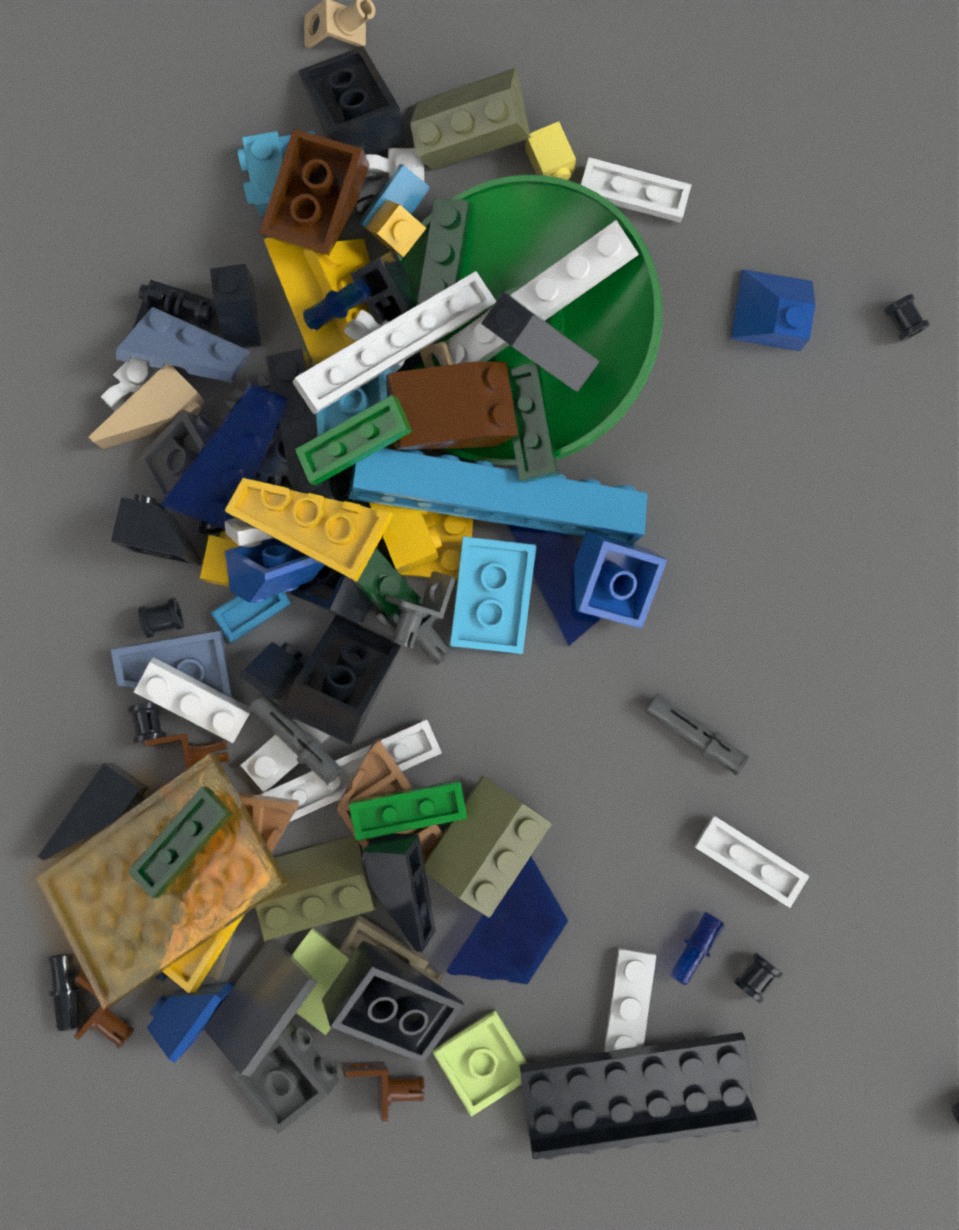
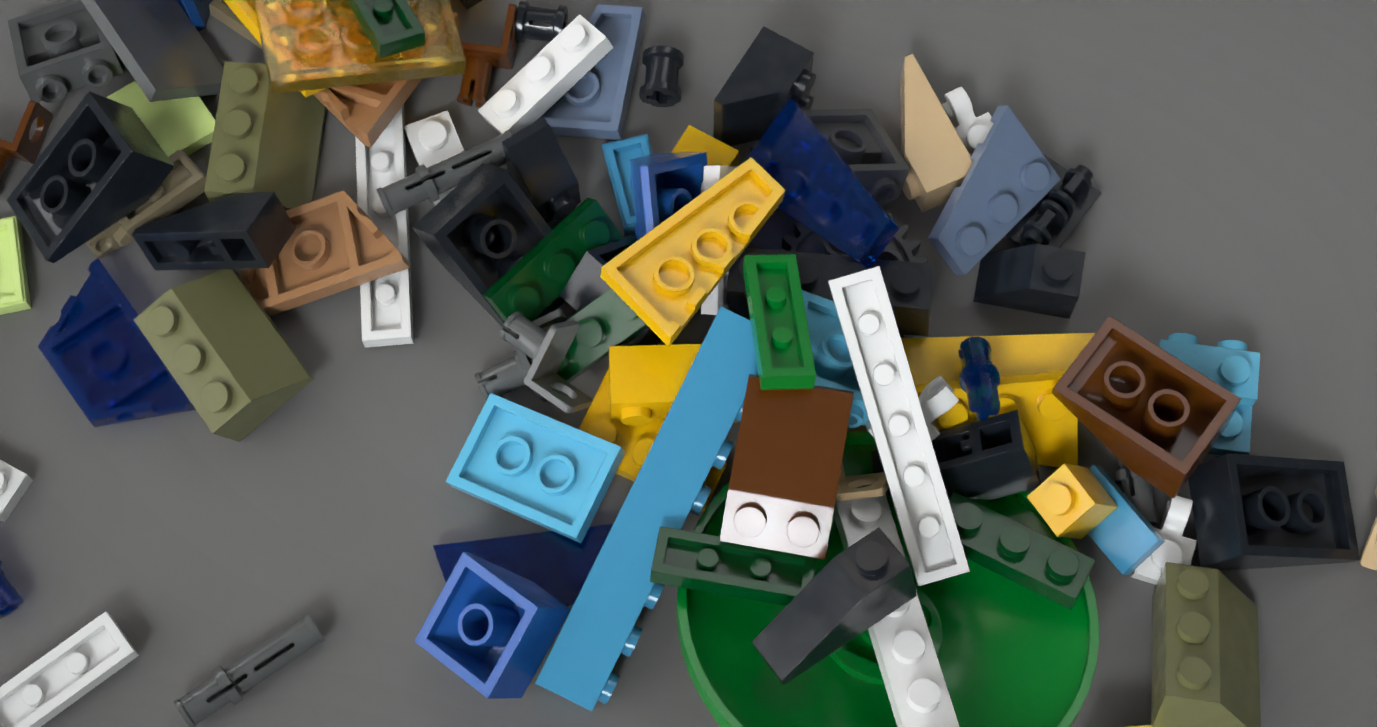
camera: 110 degrees right, 15 degrees down
(341, 636) = (548, 267): none -> dark green plate
(407, 809) = (305, 268): green plate -> none

